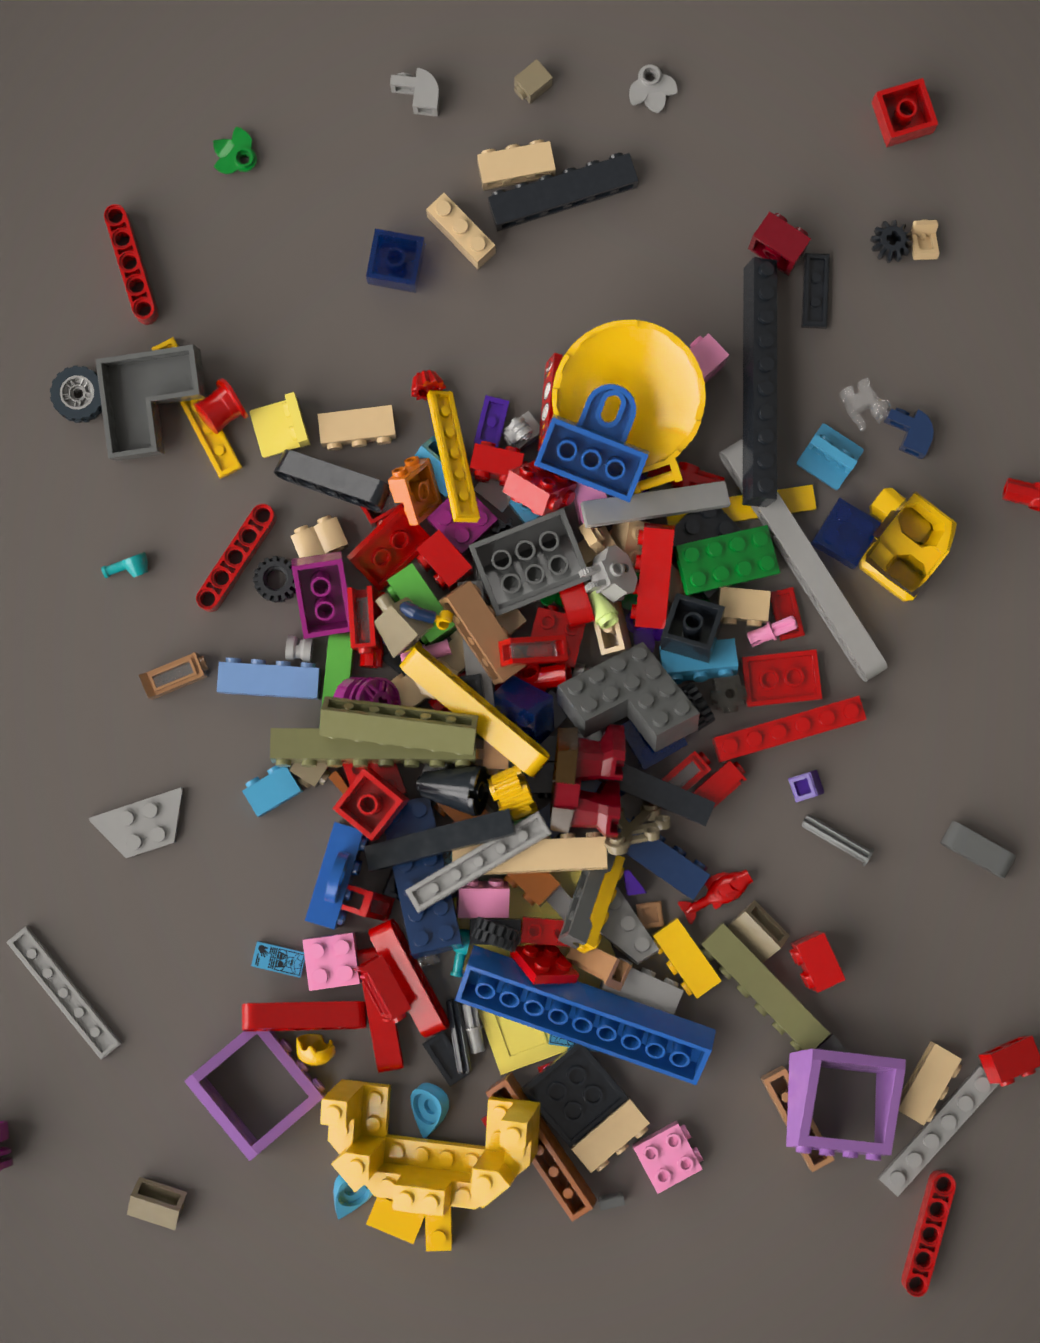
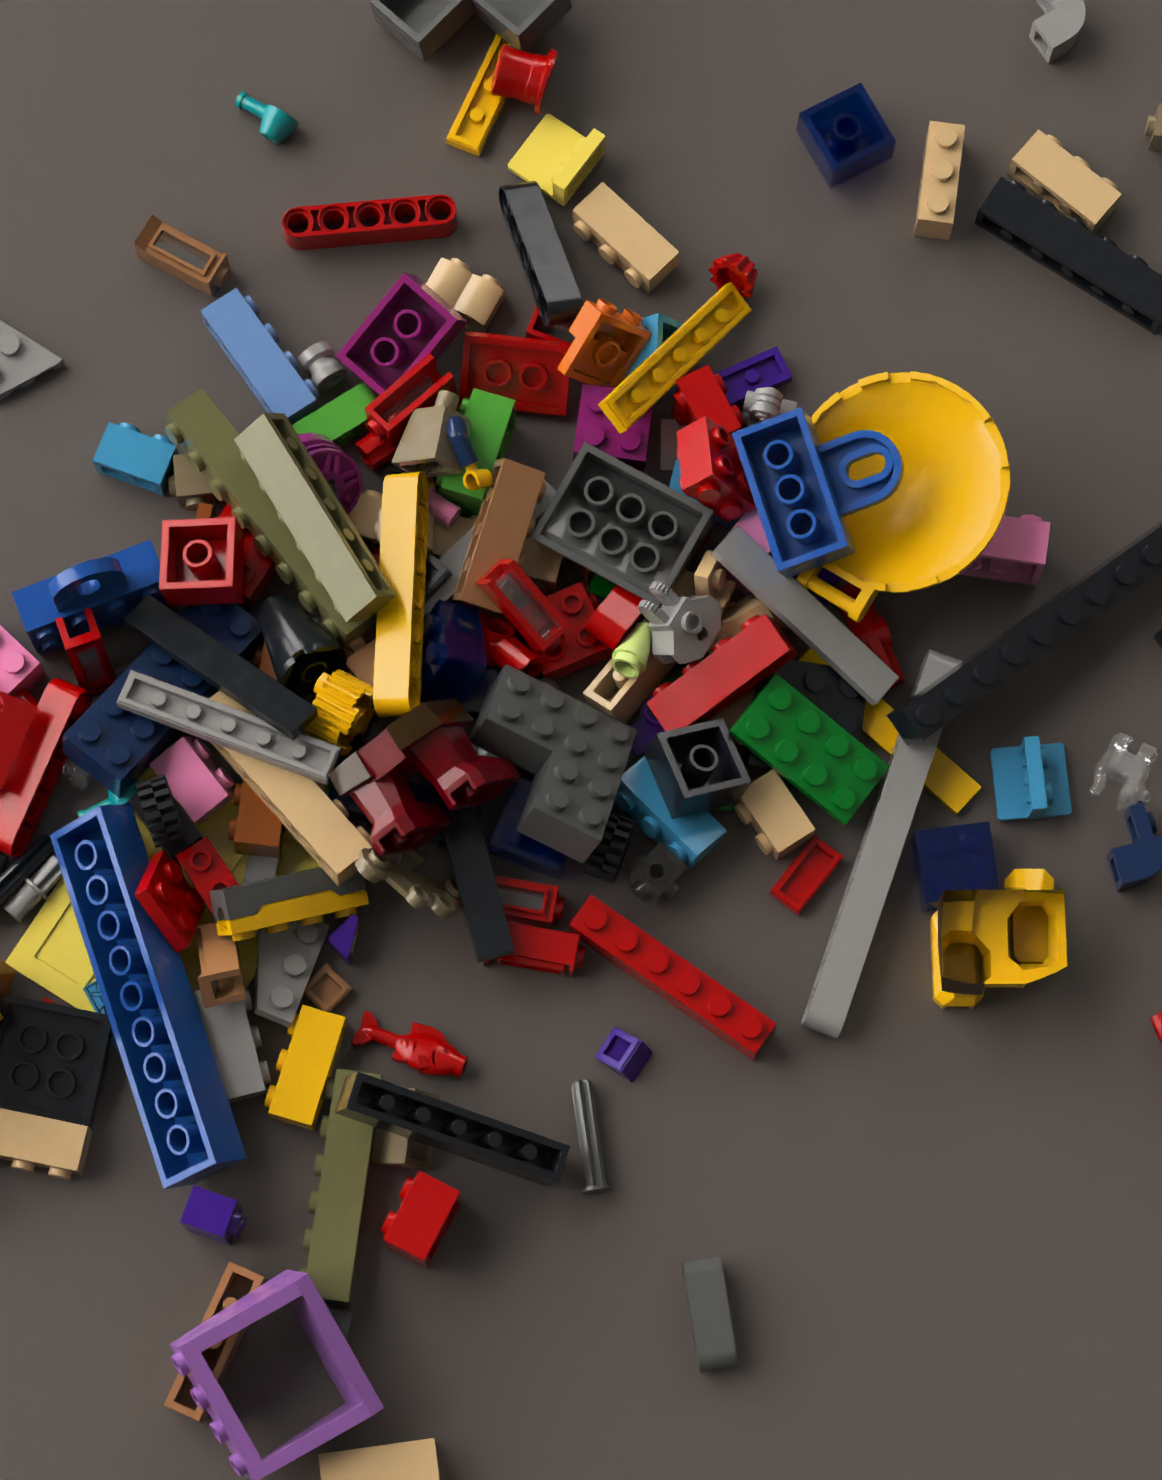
camera: 50 degrees right, 10 degrees down
(262, 573) = (366, 268): black tyre -> none
(444, 561) = (549, 436): red brick -> none
(668, 1156) = (55, 1227): bright pink brick -> none
(669, 864) = (402, 958): dark blue brick -> none
(730, 1069) = (213, 1216): none -> dark purple brick
(771, 631) = (771, 870): bright pink axle -> none
(781, 678) = (725, 925): red plate -> none
(785, 910) = (452, 1129): none -> black brick

